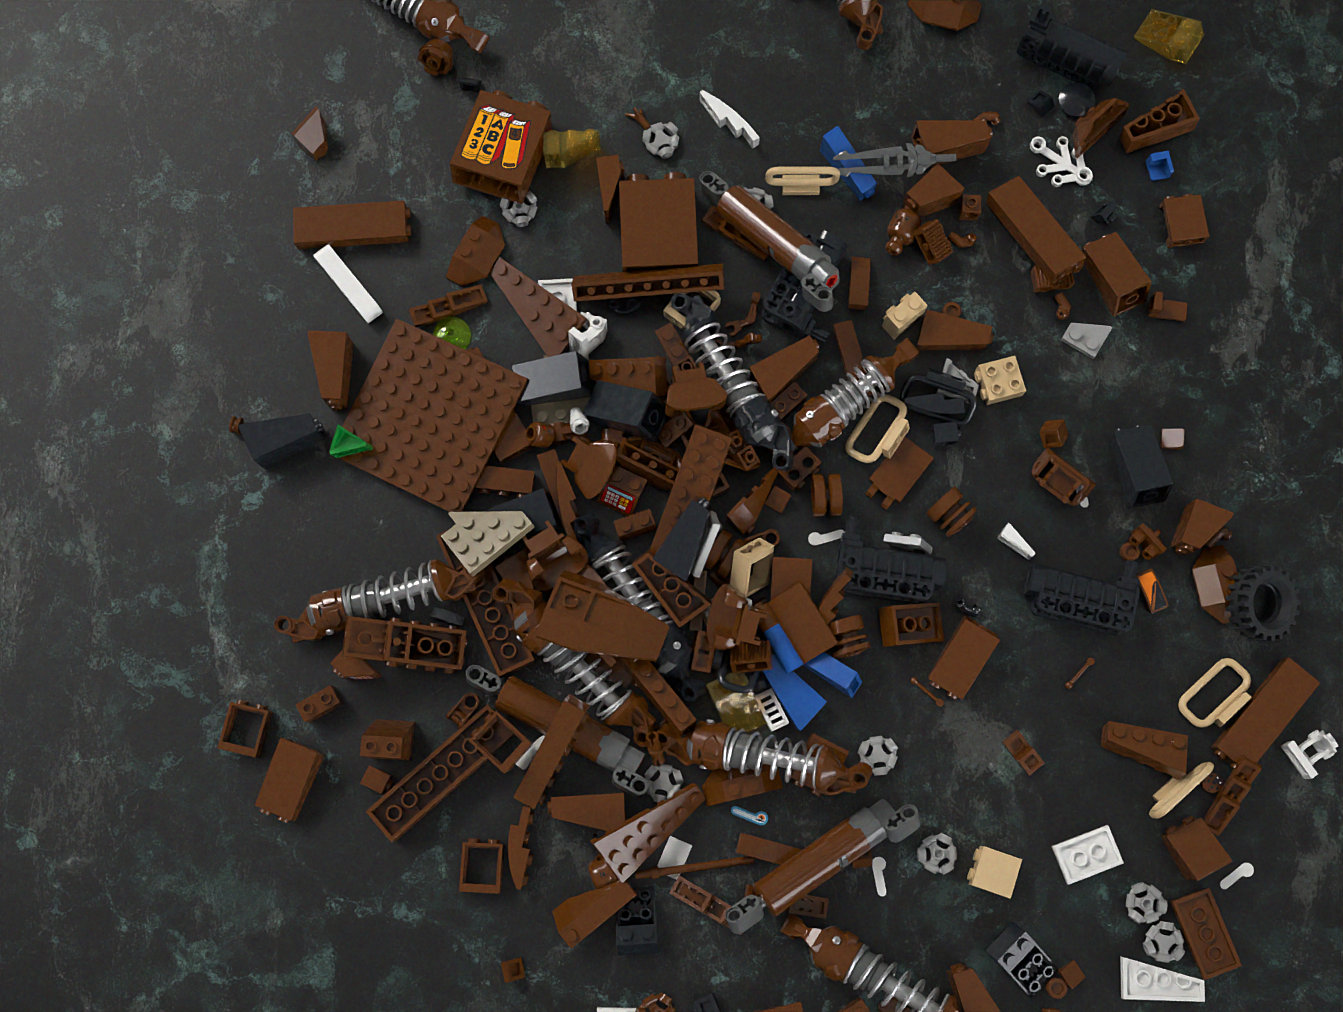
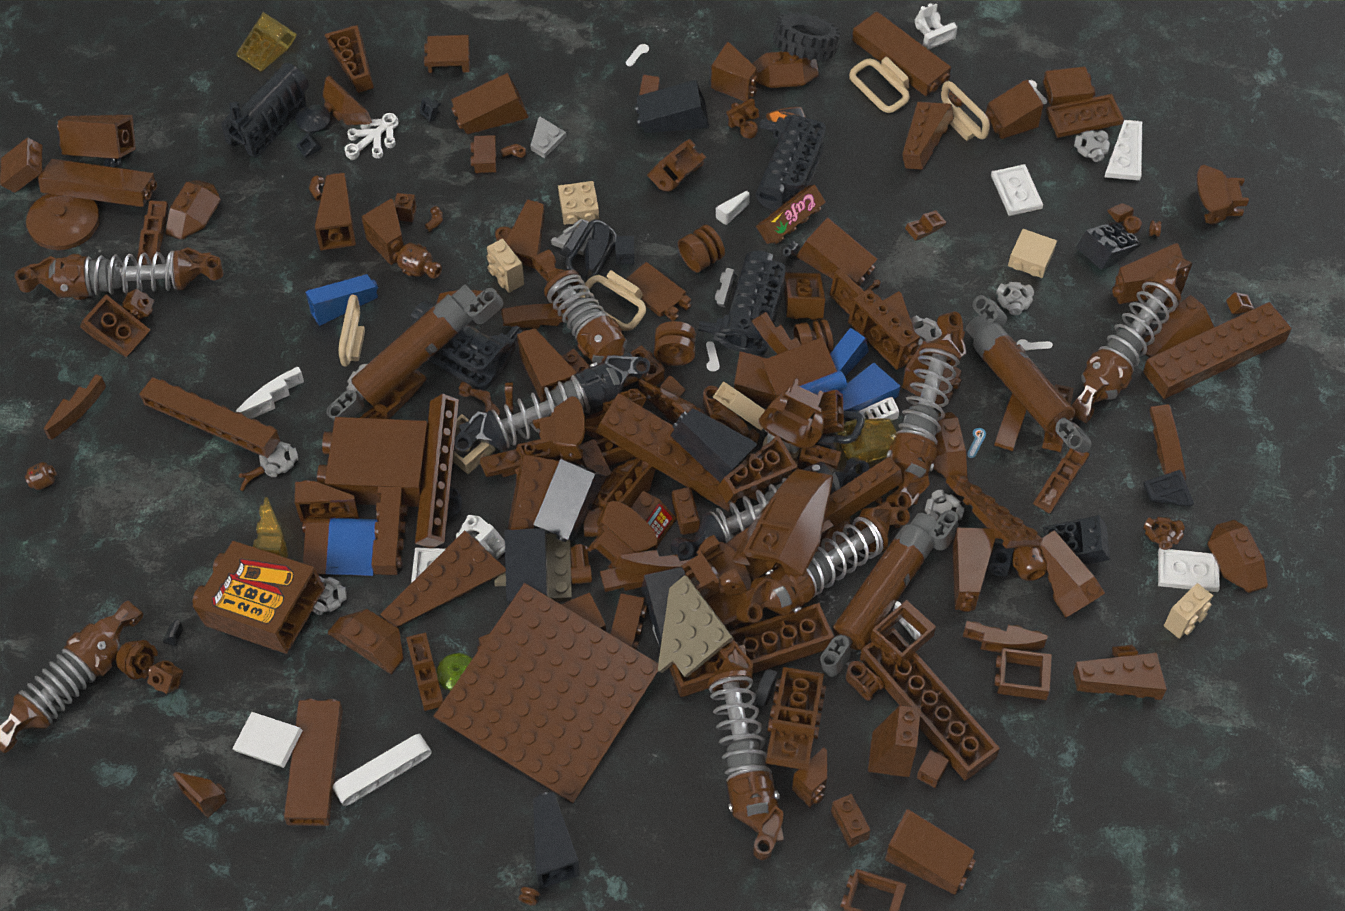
camera: 85 degrees left, 20 degrees down
(333, 364) = (479, 784): reddish brown slope -> none
(347, 443) = (567, 768): green slope -> none
(367, 181) = (267, 739): none -> white tile
(423, 84) = (165, 676): none -> reddish brown brick
(485, 974) = (1122, 675): none -> reddish brown wedge
(540, 434) = (583, 582): reddish brown head -> none
(551, 751) = (911, 586): reddish brown brick -> none
(570, 210) = (339, 545): none -> blue door
(578, 421) = (575, 545): white cone -> none
(585, 251) = (389, 531): none -> reddish brown wedge
(655, 748) = (912, 504): reddish brown pin -> none
(655, 872) = (1029, 521): reddish brown bar -> none
(674, 854) = (1018, 508): white sticker -> none
(694, 69) = (210, 417): none -> reddish brown brick
(876, 710) = (881, 322): none -> reddish brown wedge
(915, 160) = (354, 234): dark grey sword -> none
(933, 241) = (435, 236): reddish brown brick -> none
(1012, 604) = (790, 214): none -> reddish brown brick
(1035, 230) = (439, 156): reddish brown brick -> none
(1053, 433) = (634, 169): reddish brown panel -> none
(1090, 661) = (845, 169): reddish brown hinge -> none
(1145, 903) = (1060, 149): light grey piece -> none
(1159, 166) = (392, 64): blue panel -> none
(1166, 309) = (528, 76): reddish brown bracket -> none
(1229, 426) = (643, 48): none -> white sticker
(1231, 794) = (967, 81): reddish brown slope -> none
(1245, 914) = (1068, 85): none -> reddish brown brick

